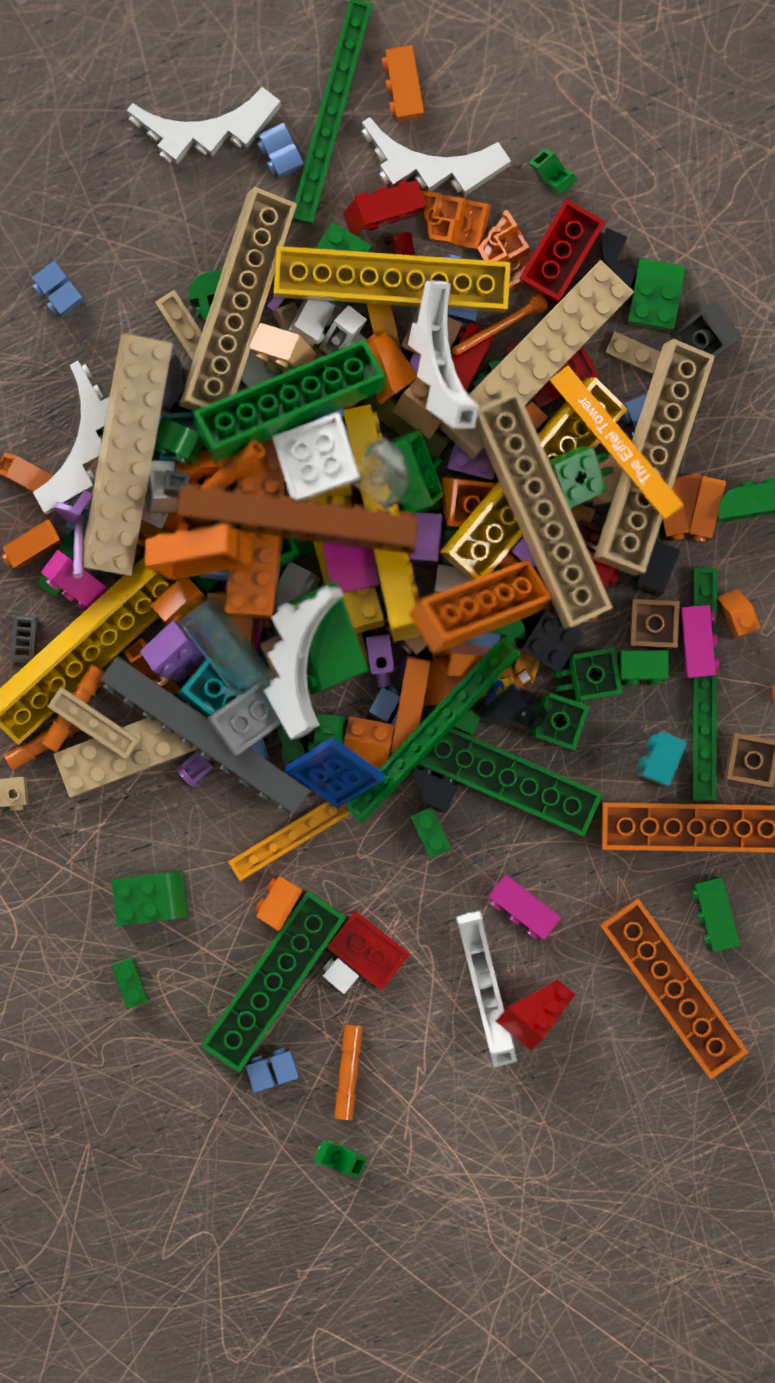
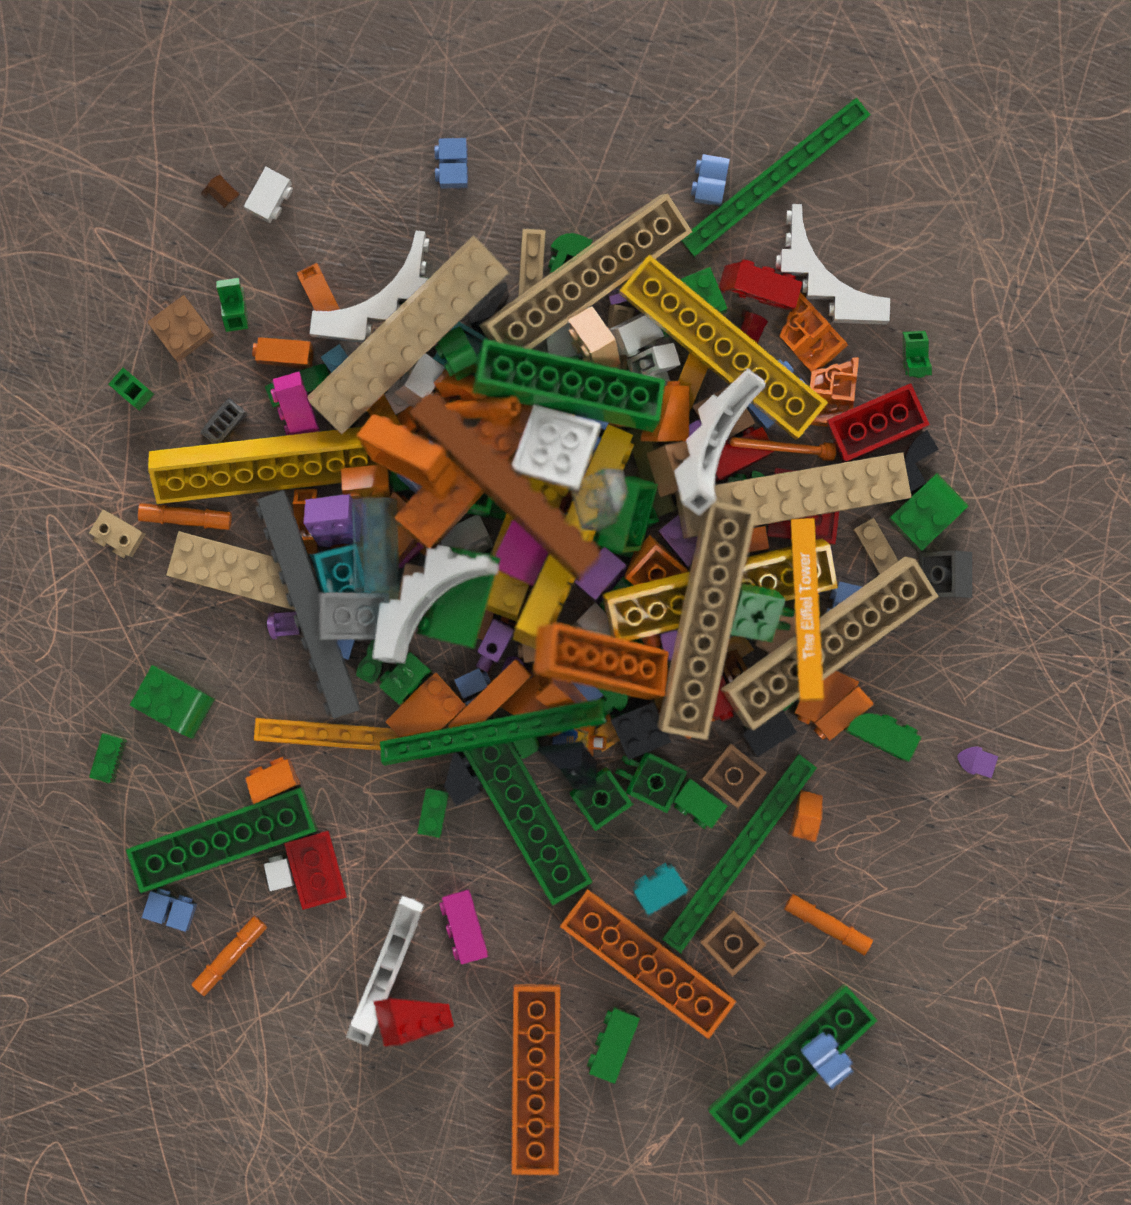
camera: 35 degrees right, 0 degrees up
(71, 513) = (330, 350): medium lavender tile -> none
(78, 547) = (317, 380): lavender bar -> none
(84, 691) = (221, 506): orange piece -> none
(93, 722) = (227, 529): tan plate -> none
(173, 482) = (432, 384): dark grey plate -> none
(208, 135) = (636, 110): white arch -> none
(334, 772) = (389, 709): blue plate -> none
(340, 1158) = (173, 1020): green brick -> none
(403, 84) = (848, 197): orange brick -> none
(698, 641) = (759, 816): dark pink brick -> none

